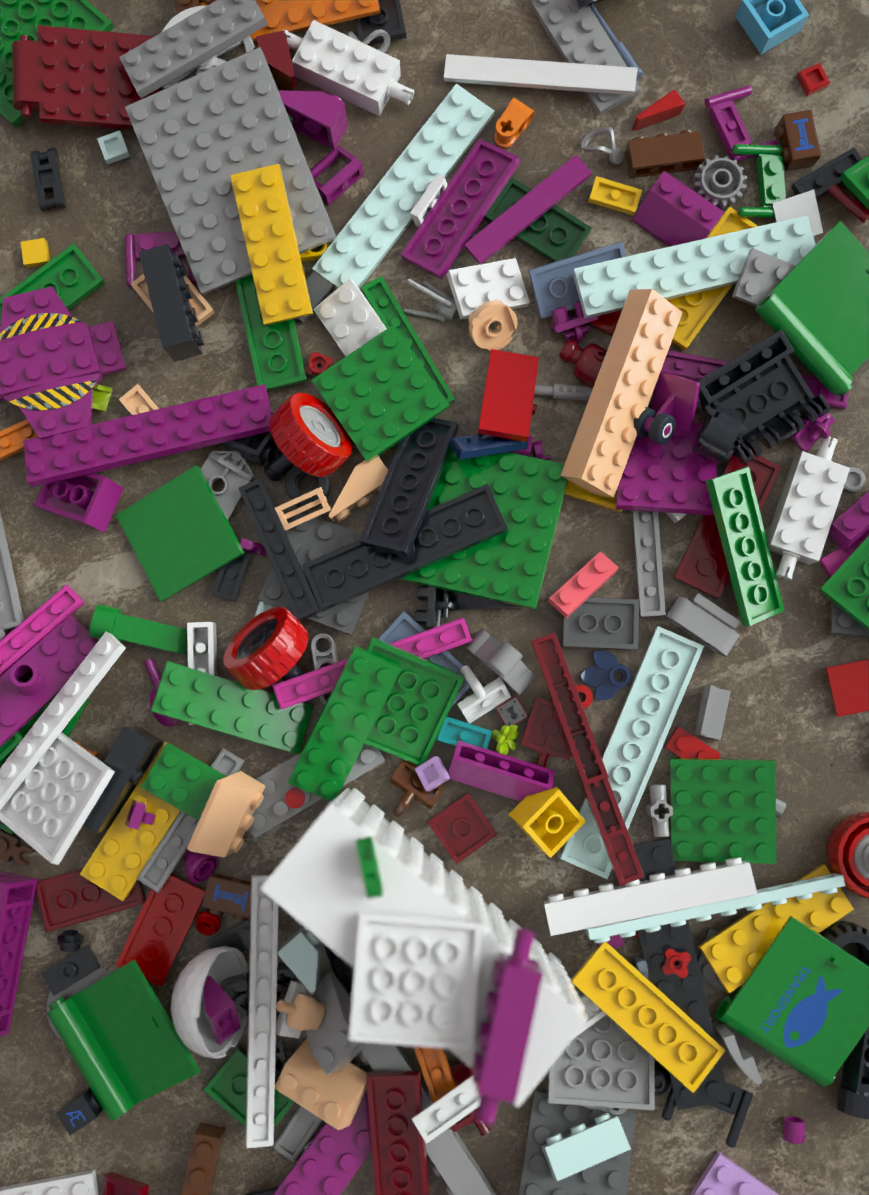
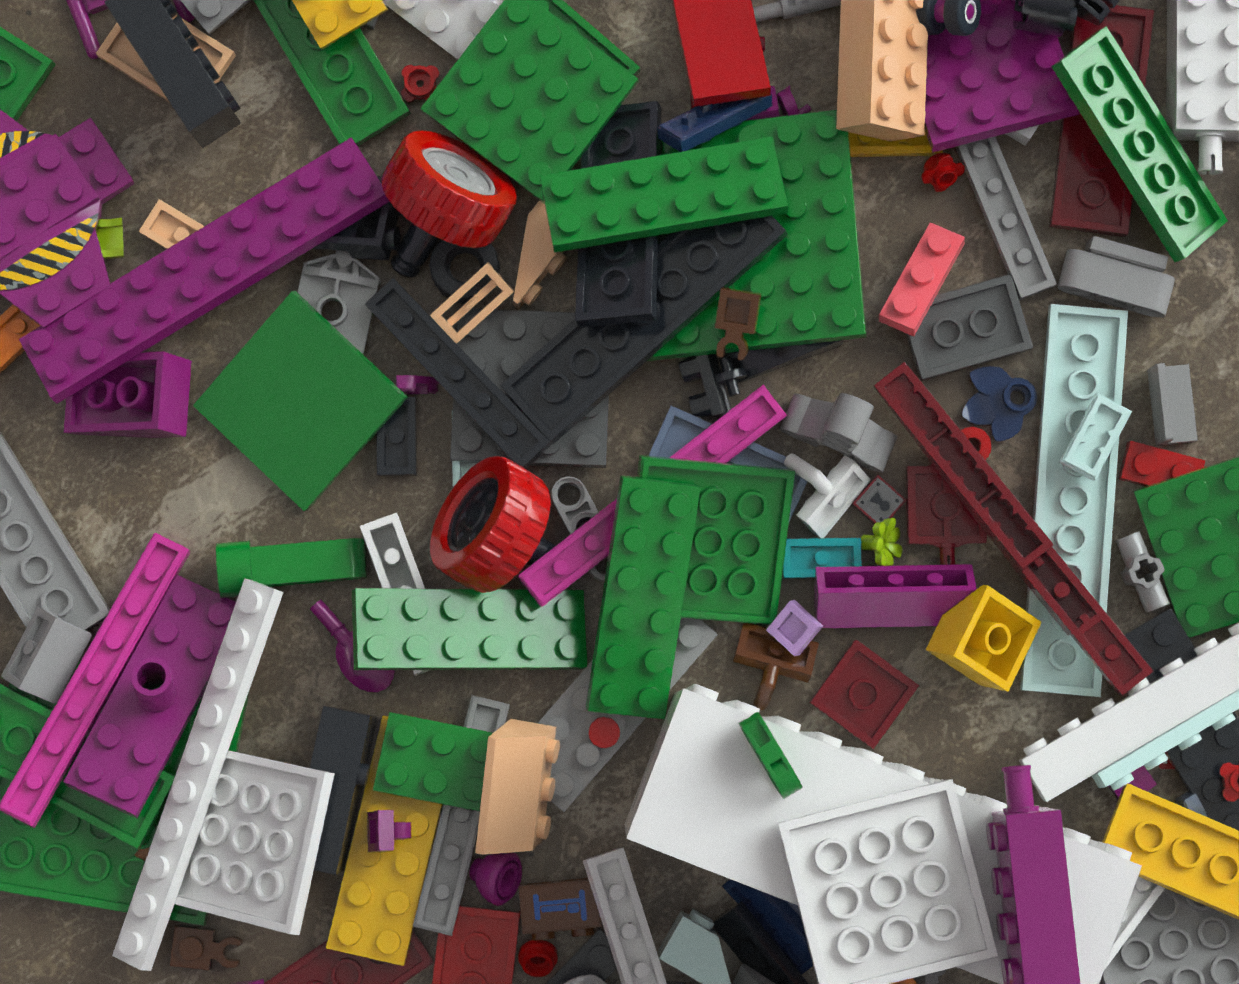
camera: 20 degrees left, 0 degrees up
(439, 481) = (663, 194): none -> green plate
(460, 570) = (737, 315): none -> reddish brown plate
(617, 522) = (941, 171): none -> red plate
(657, 717) = (1095, 436): none -> light aqua plate

